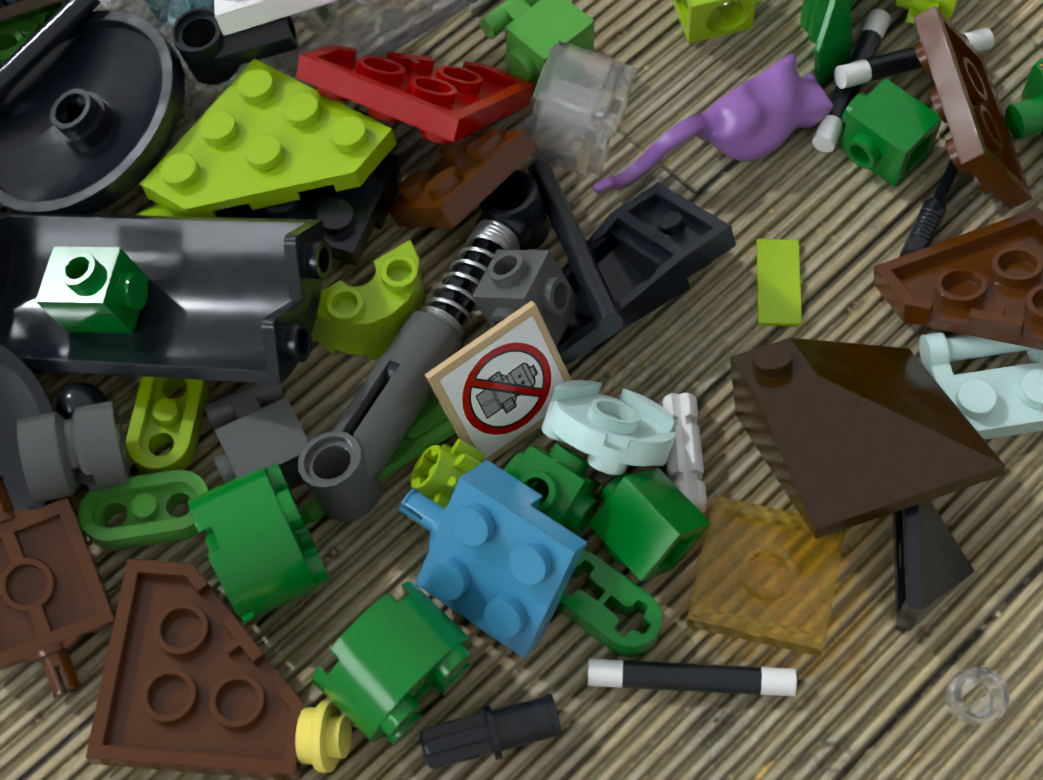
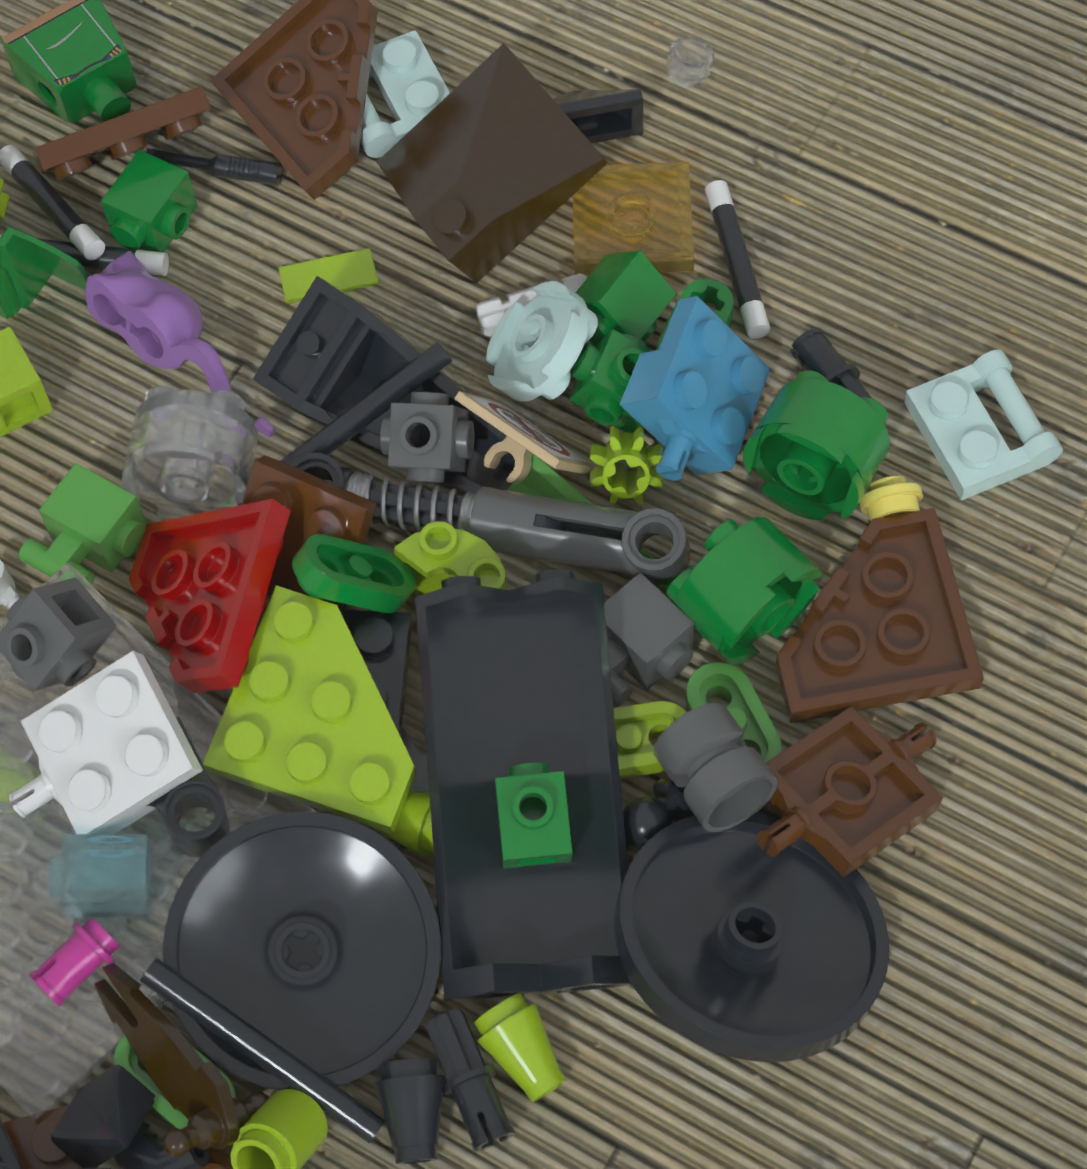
camera: 105 degrees left, 0 degrees up
(385, 193) = (352, 574): none -> green plate

